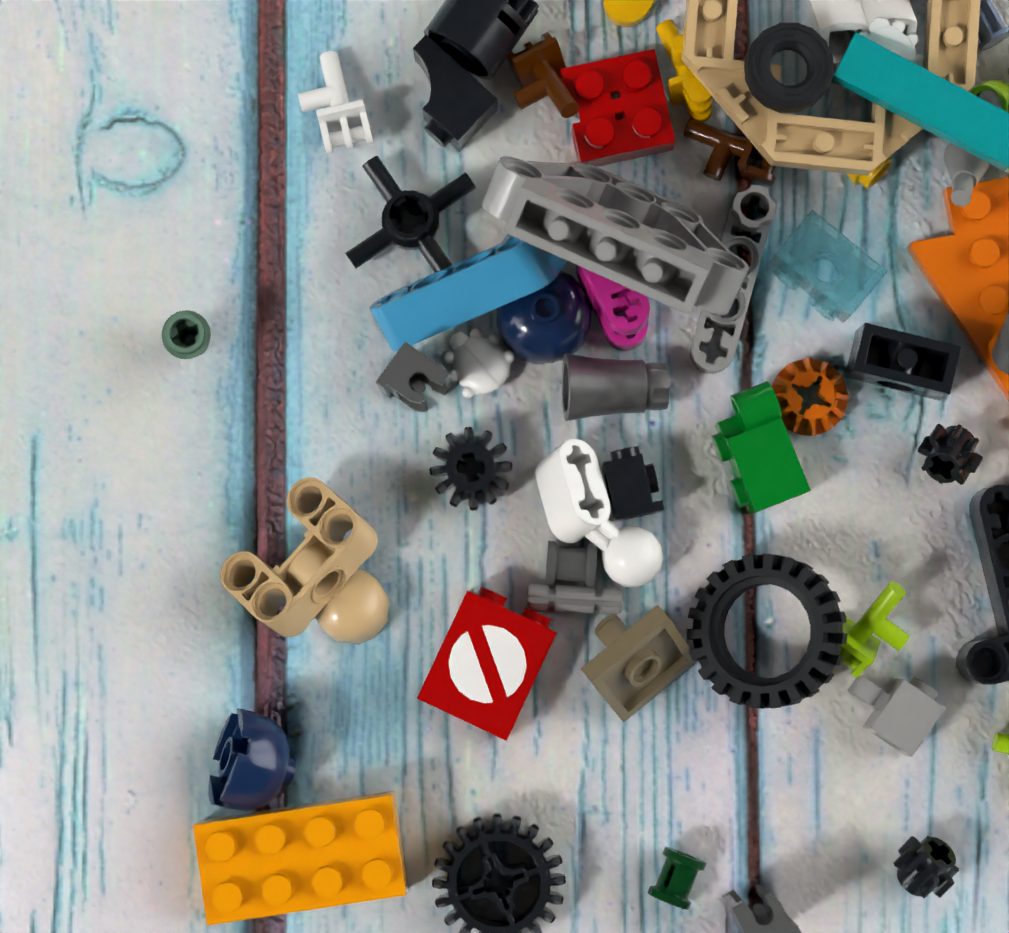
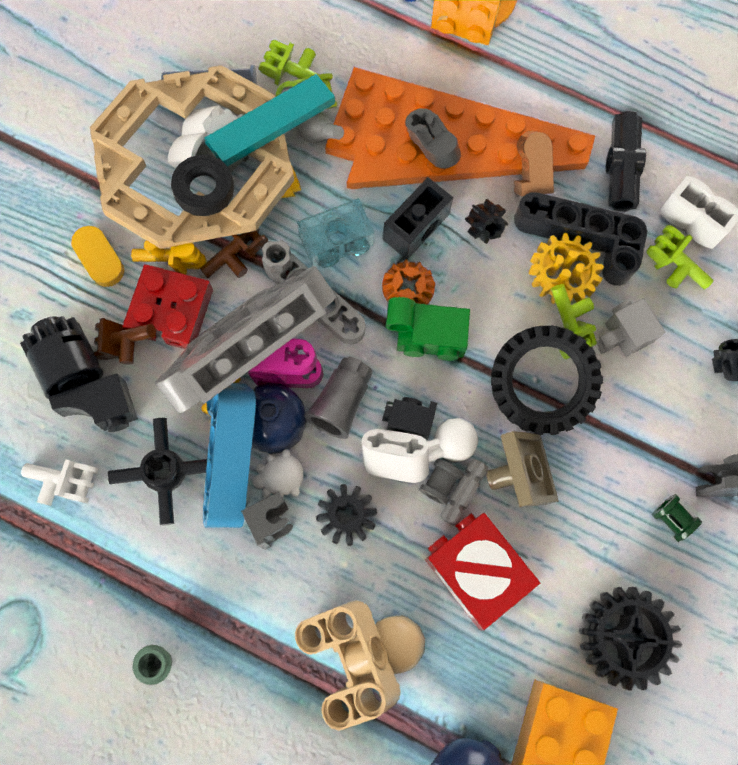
camera: 70 degrees left, 10 degrees down
(967, 588) = (571, 251): none -> yellow gear

